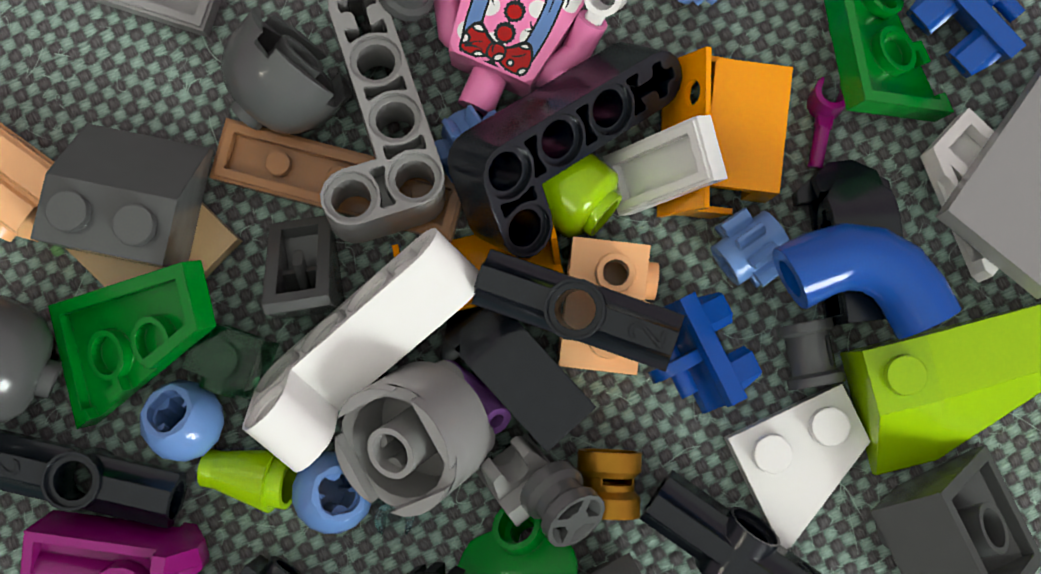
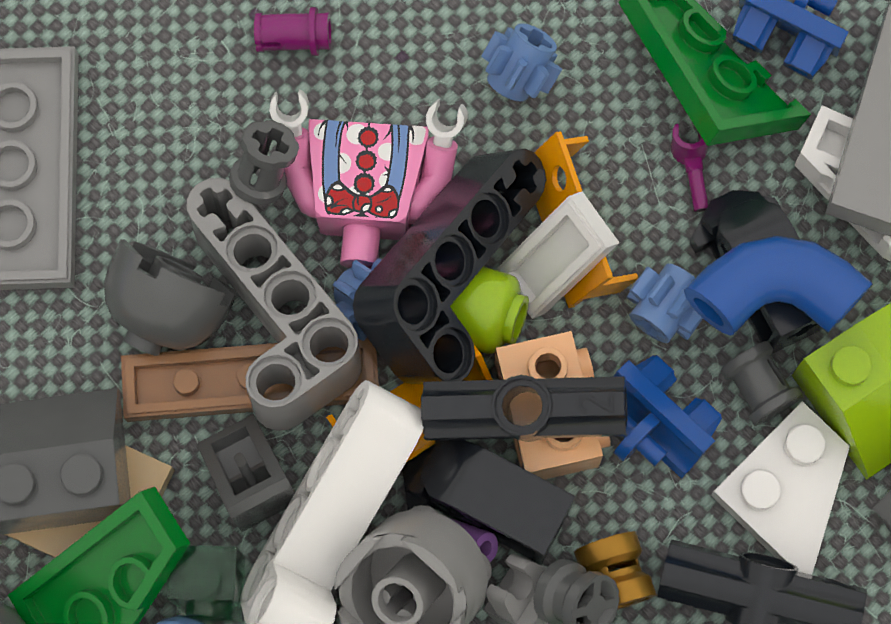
camera: 15 degrees left, 10 degrees down
(751, 125) = (624, 190): light orange panel -> none

